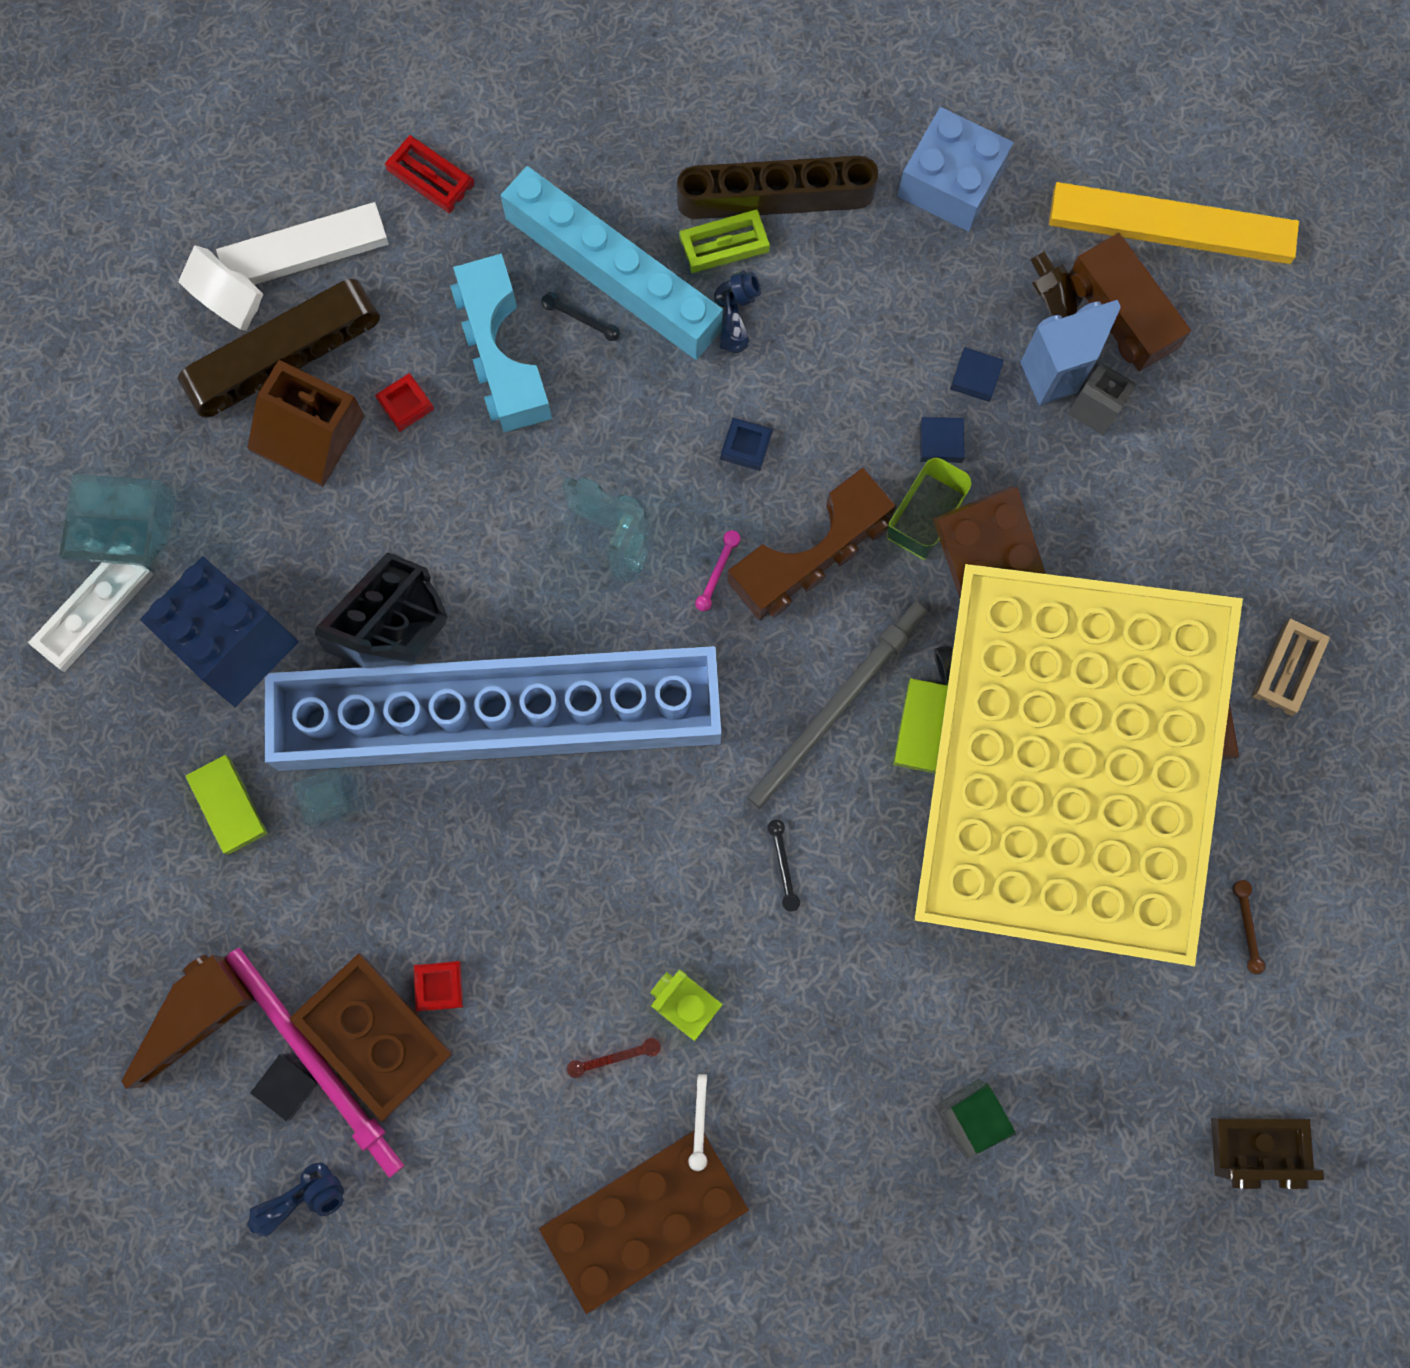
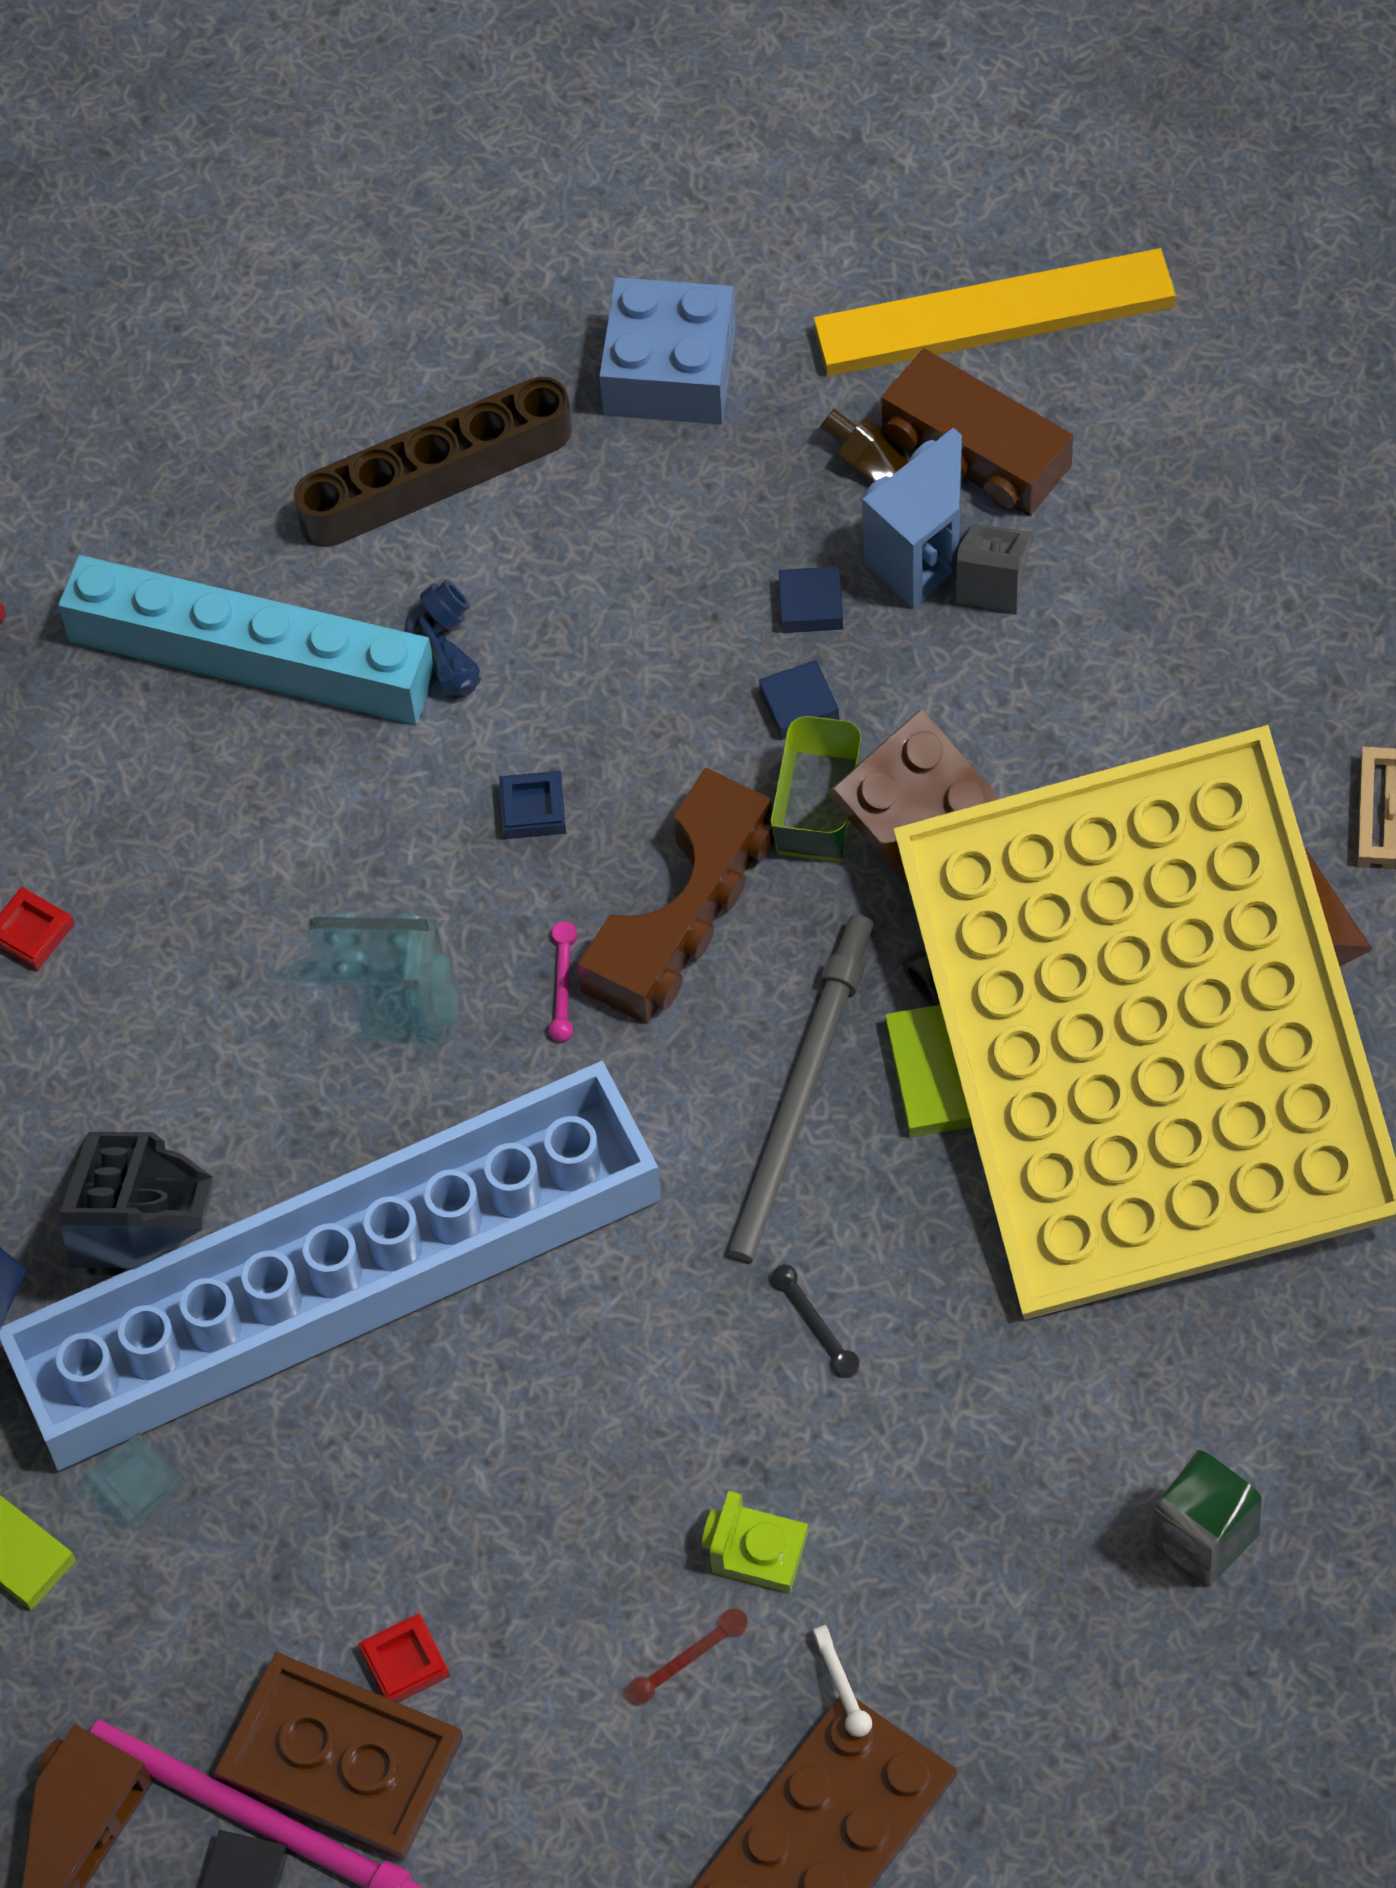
camera: 15 degrees left, 15 degrees down
(515, 387) = (180, 850): medium azure arch -> none
(551, 301) = (181, 722): black hinge -> none
(729, 255) = (367, 599): lime tile -> none

